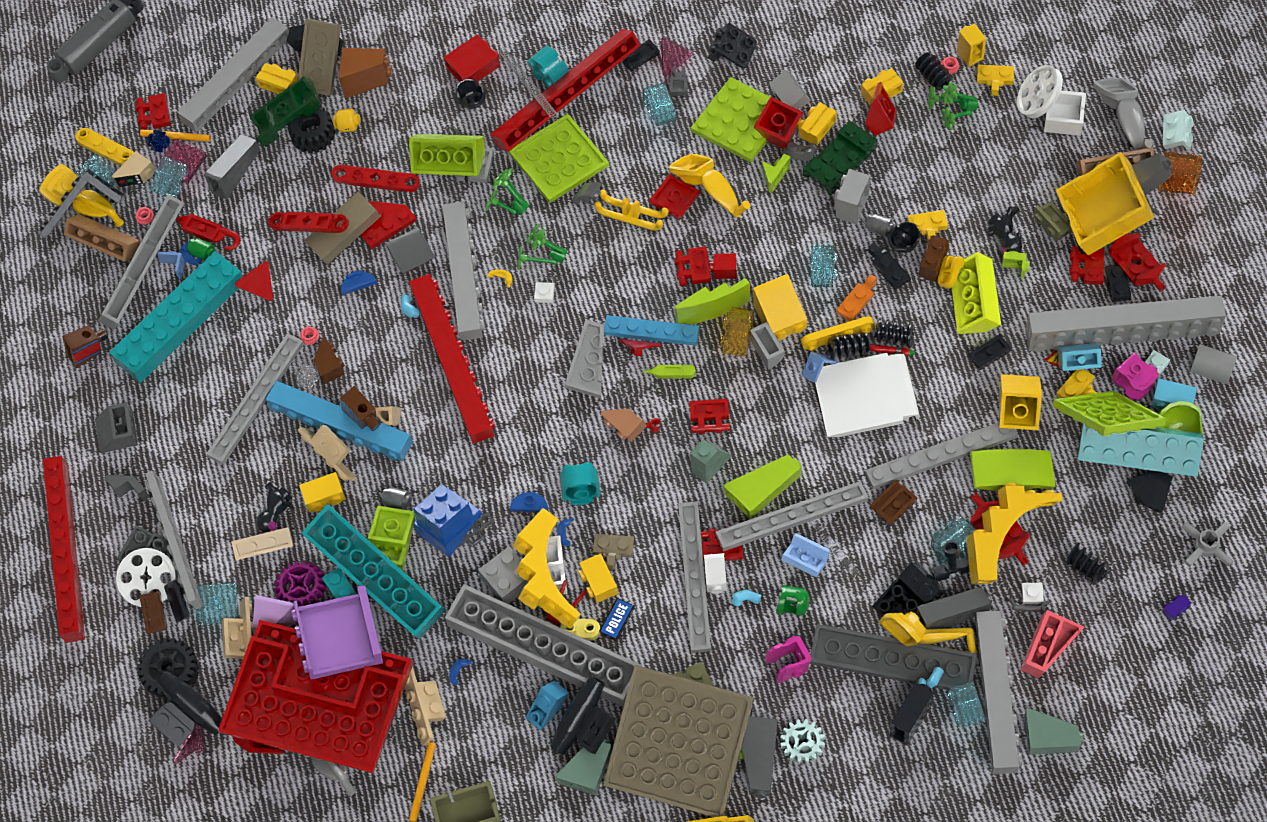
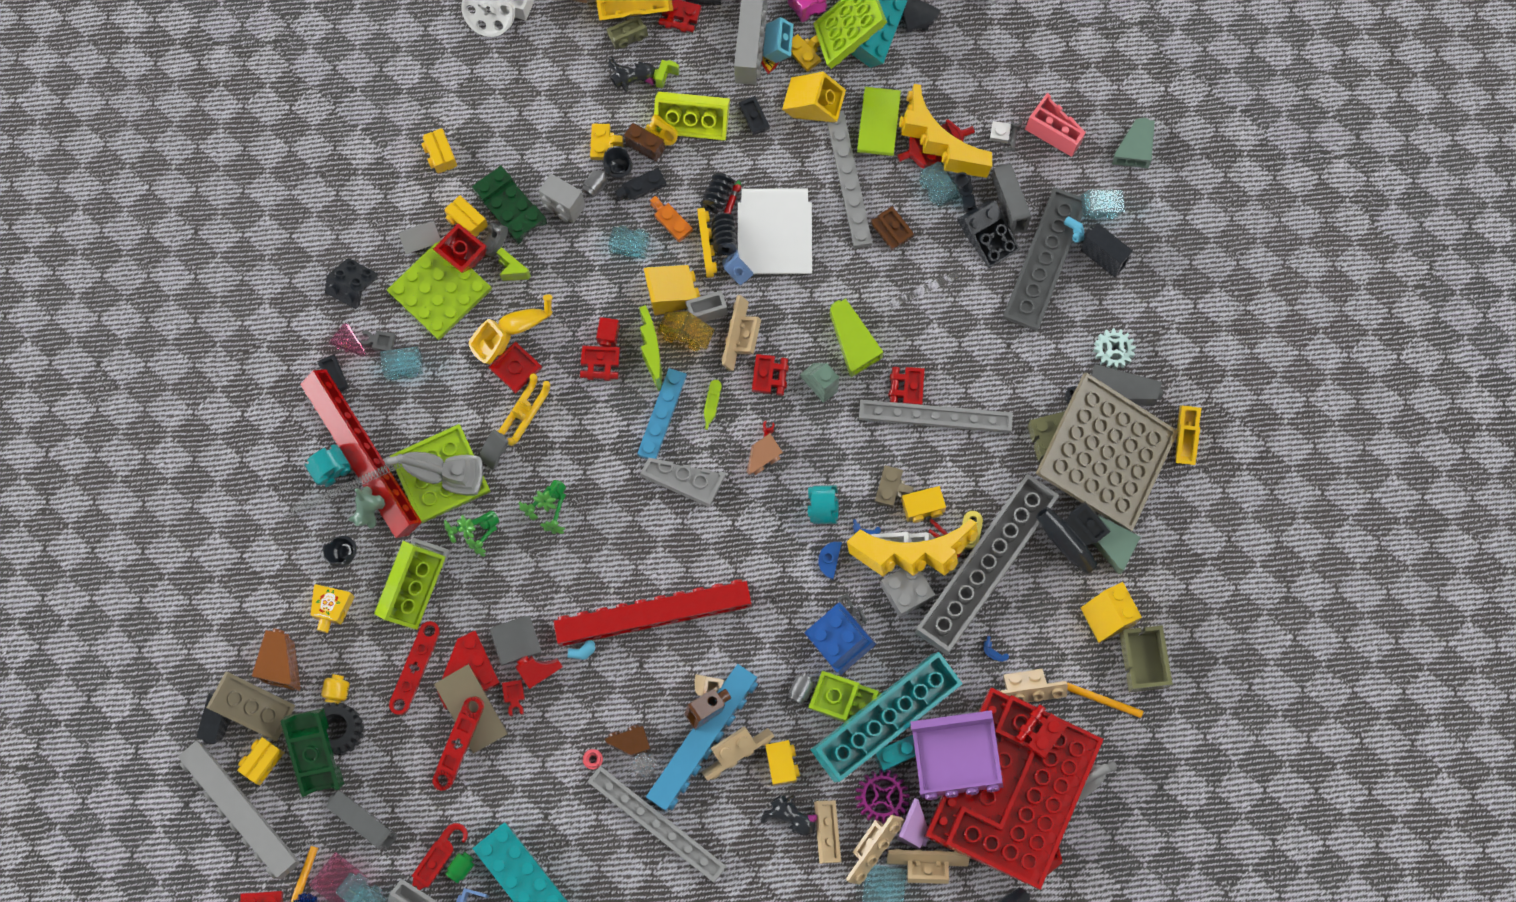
camera: 85 degrees left, 10 degrees up
(187, 257) = (460, 887): blue piece -> none
(246, 581) = (872, 846): none -> tan bracket
(257, 282) = (516, 807): red piece -> none
(356, 281) = (539, 702): blue plate -> none
(361, 260) = (513, 694): none -> red plate
(367, 714) = (1046, 736): none -> red plate
(383, 269) = (535, 671): none -> red arch
(421, 99) = (329, 606): none -> yellow torso
(462, 271) = (552, 589): light grey brick -> none
(472, 60) = (295, 545): red brick -> none
(503, 274) = (563, 551): yellow piece -> none
(511, 774) = (1111, 612): none -> yellow slope
(514, 103) = (365, 507): none -> sand green animal
(544, 292) = (595, 511): white plate -> none
(547, 704) = (1045, 570): dark azure slope -> none
(557, 170) = (458, 474): none -> light grey piece
(616, 619) = (966, 494): tile -> none
(638, 346) = (679, 427): red piece -> none
(715, 573) = (941, 394): white slope -> none
(744, 595) = (962, 376): medium azure arm -> none
(747, 381) = (741, 335): none -> tan bracket
(791, 516) = (892, 318): light grey plate -> none
(793, 595) = (972, 328): green helmet -> none
(793, 645) = (1040, 333): dark pink piece -> none
(806, 555) = (933, 313): light blue bracket -> none
(881, 112) = (472, 156): red slope -> none
(911, 631) = (1032, 231): yellow piece -> none
(933, 71) = (435, 99): black piece -> none
(951, 61) = (426, 82): coral plate -> none
(967, 103) = (477, 81): plant -> none
(971, 44) = (415, 58): yellow brick -> none
(995, 76) = (452, 49): yellow hinge -> none
(996, 692) = (1085, 177): light grey brick -> none
(1087, 565) = (983, 78): black piece -> none
(1177, 607) = (1033, 20): dark purple piece -> none

